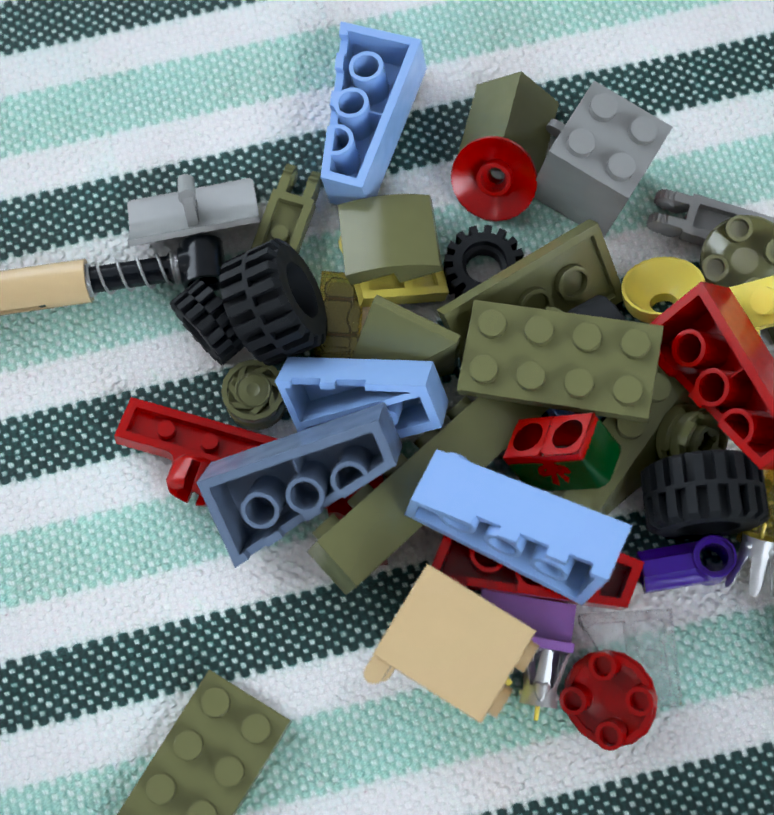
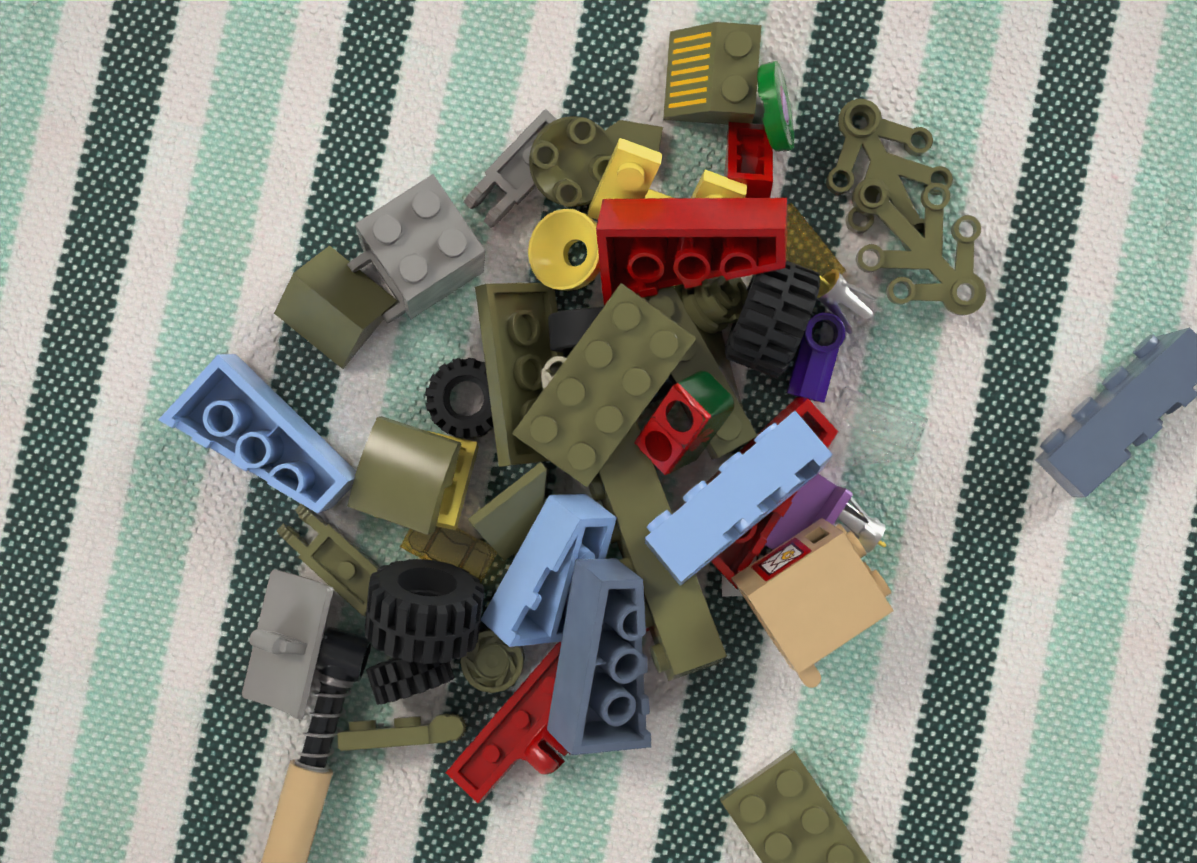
camera: 70 degrees left, 15 degrees up
(153, 346) = (405, 732): none -> olive hinge
(486, 195) = (386, 348): red dish -> none
(609, 698) = (897, 477): red dish -> none

